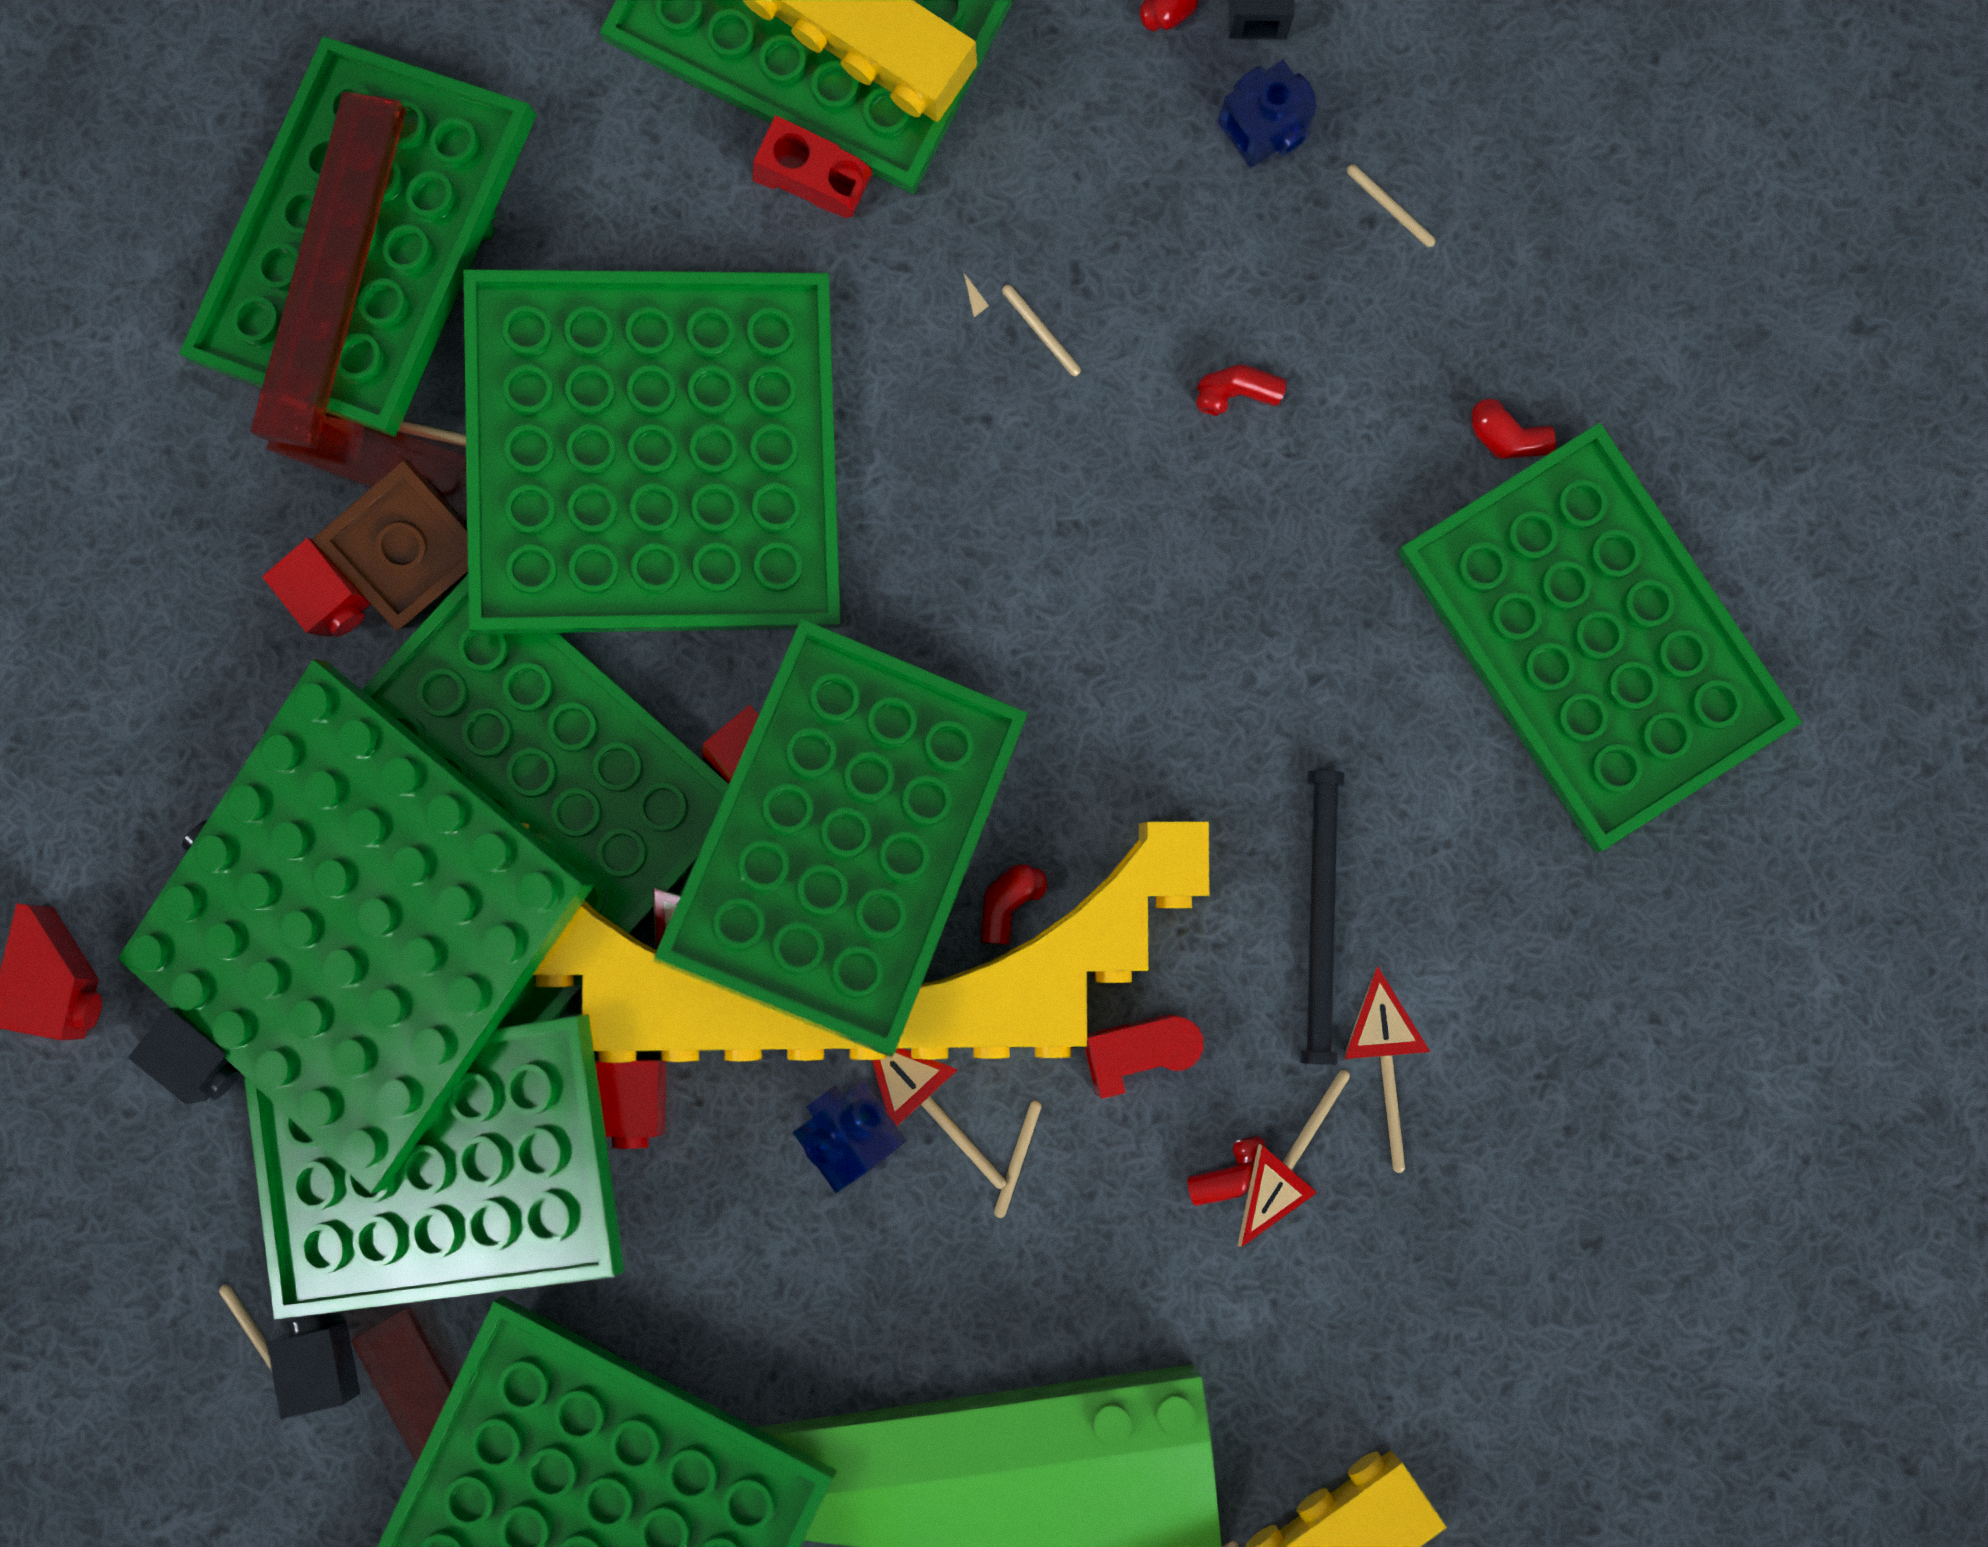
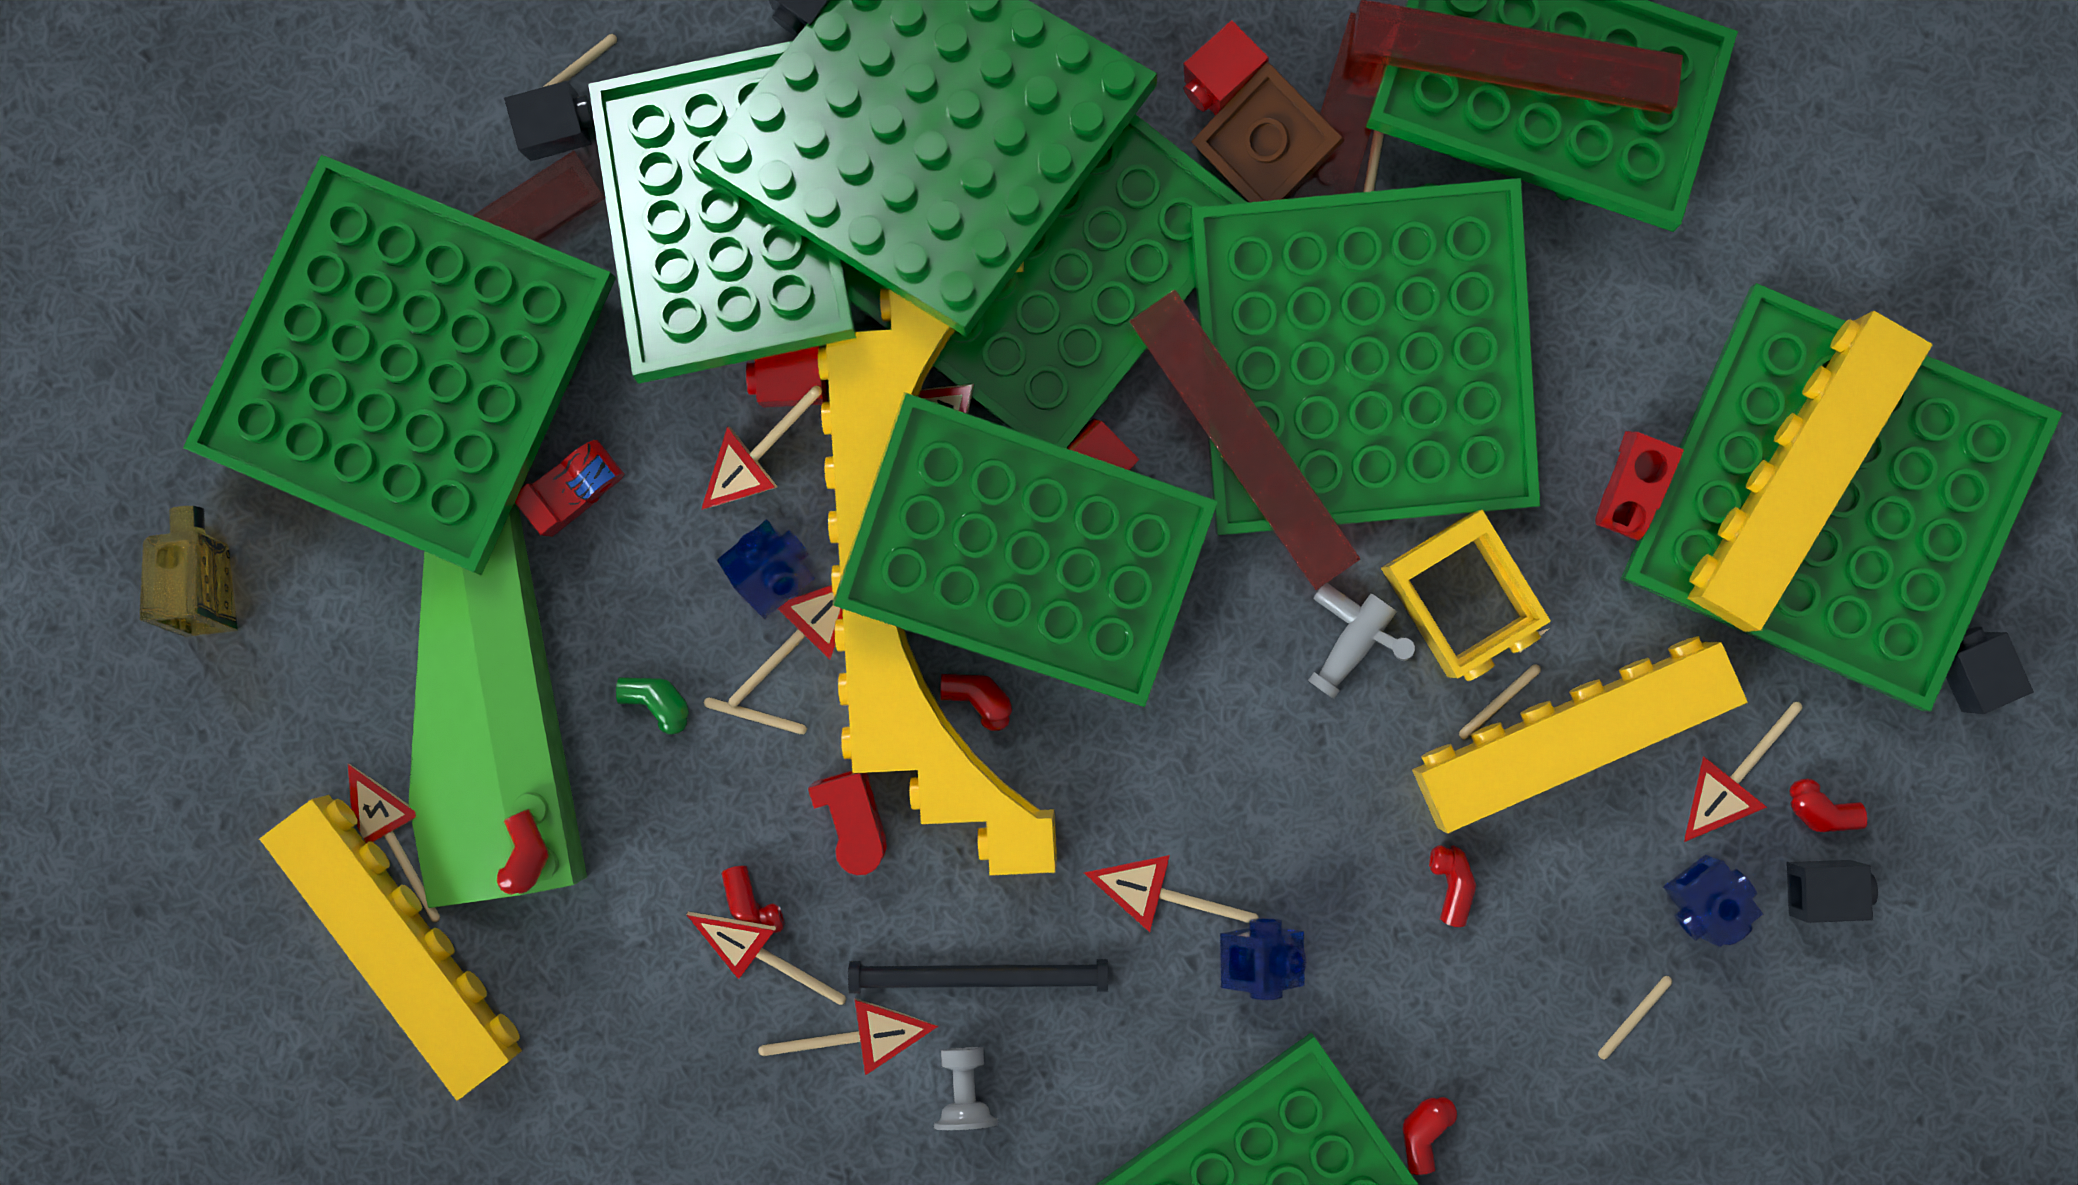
camera: 90 degrees right, 5 degrees up
(733, 587) = (1244, 439): none -> clear red tile
(734, 1164) = (738, 470): none -> piece
(743, 1363) = (569, 488): none -> red leg
(954, 470) = (1363, 630): none -> light grey piece
(969, 305) = (1515, 635): none -> yellow window
(992, 1267) = (659, 697): none -> green arm
(1081, 246) = (1578, 735): none -> yellow brick
(1156, 103) = (1720, 797): none -> piece
(1166, 1428) = (527, 857): none -> red arm
(1230, 733) = (1138, 888): none -> piece
(1314, 597) = (1263, 959): none -> clear blue brick
(1474, 937) = (965, 1111): none -> light grey piece

